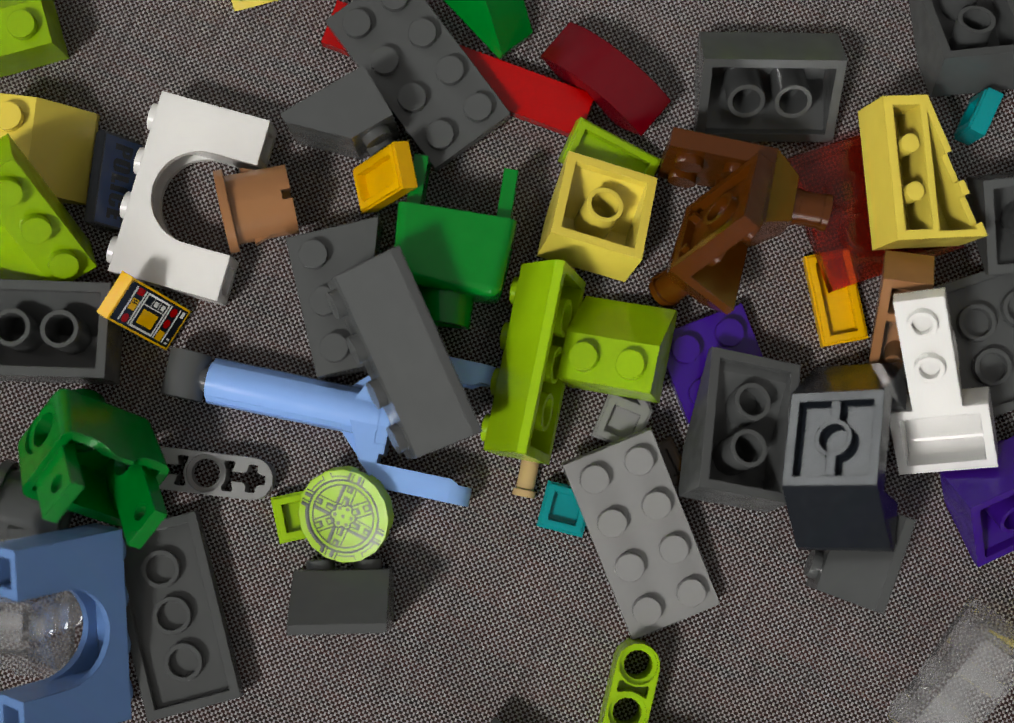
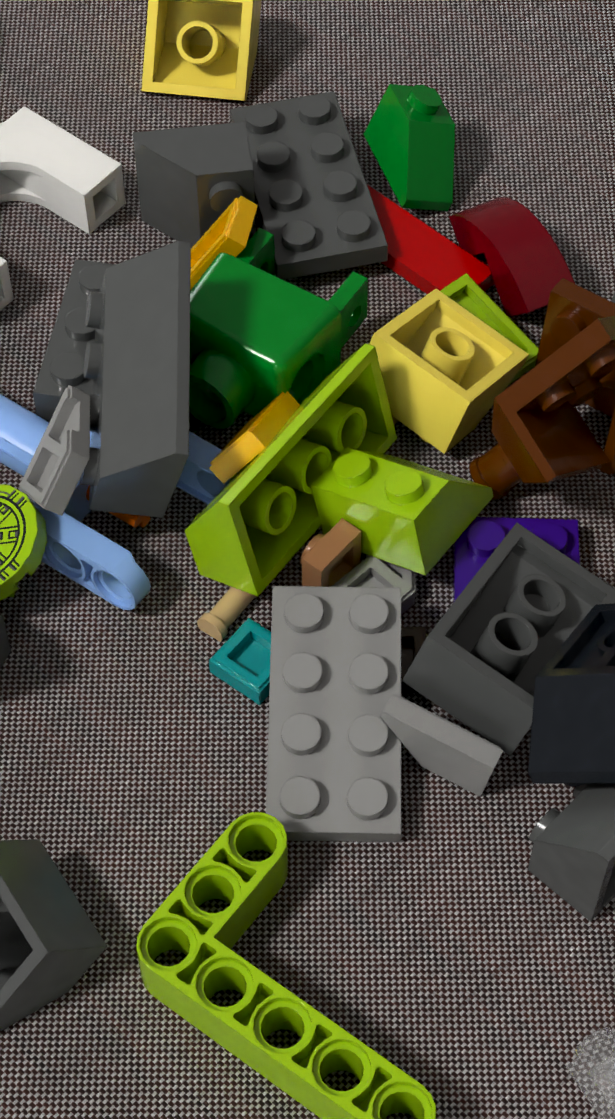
camera: 25 degrees right, 30 degrees down
(255, 205) = (57, 228): medium nougat piece -> none
(375, 441) = (60, 453): none -> light grey tile
(497, 348) = (253, 437): none -> yellow tile
(584, 413) = (331, 555): none -> medium nougat plate
(726, 534) = (442, 744): none -> light grey tile

